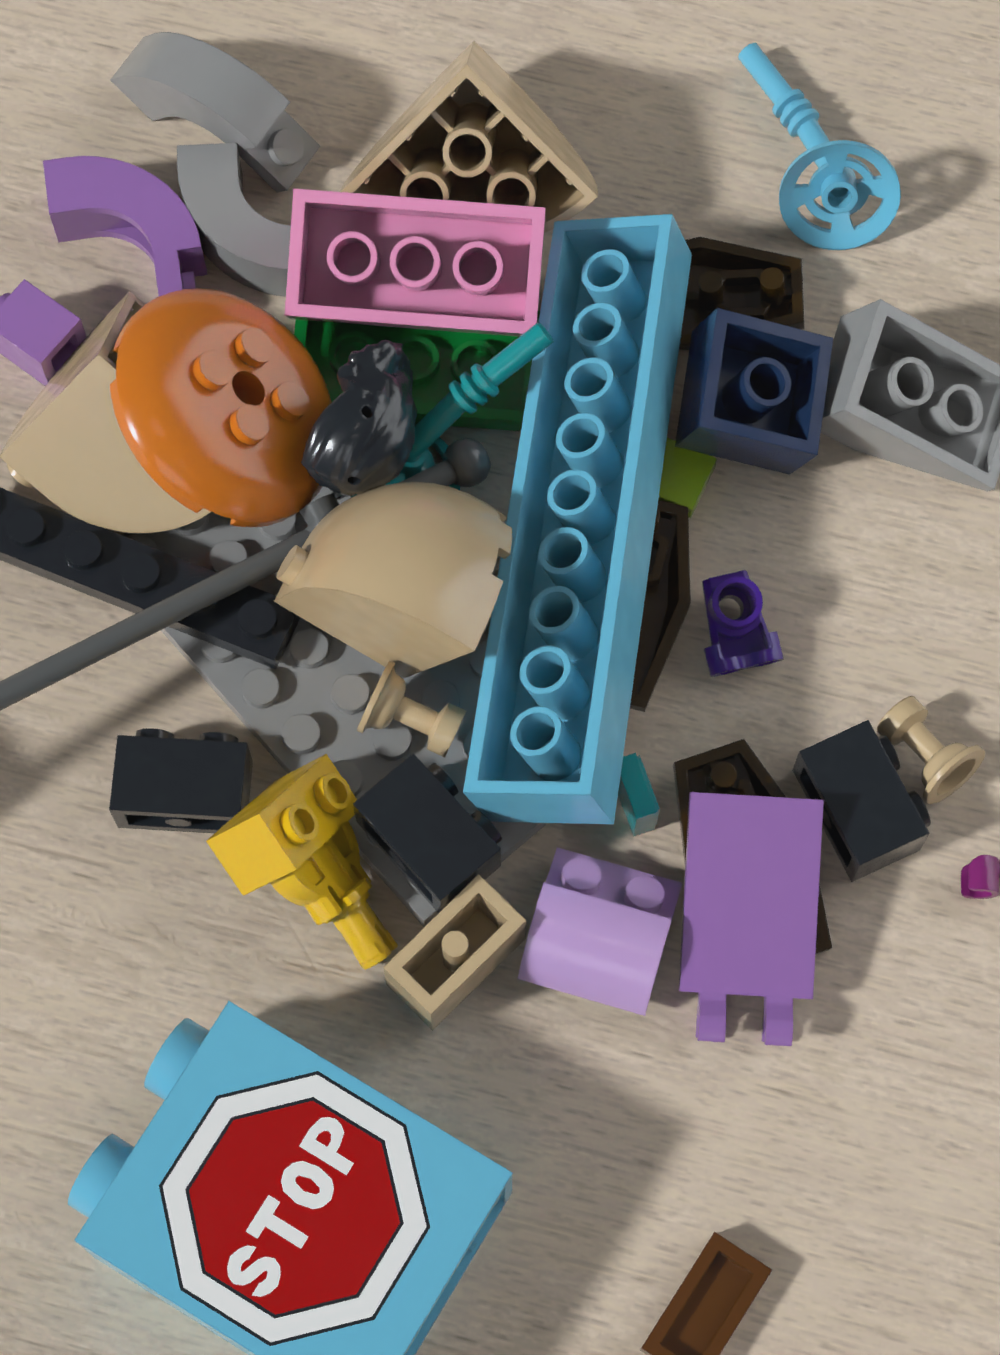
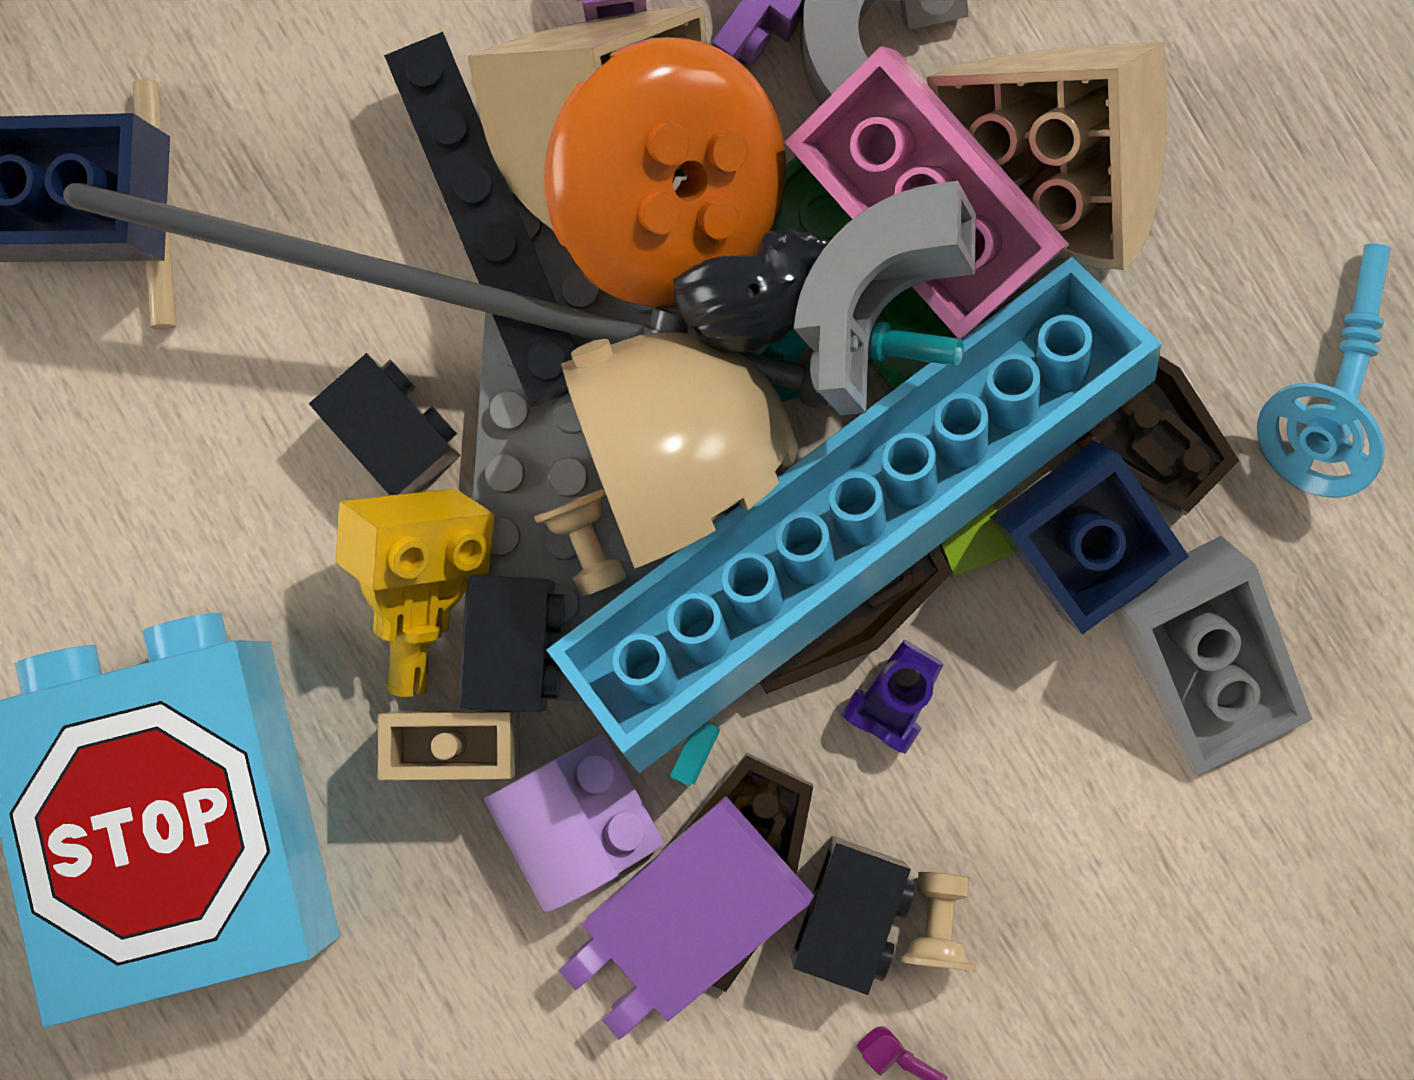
camera: 50 degrees right, 15 degrees up
(428, 326) = (868, 263): none -> light grey arch

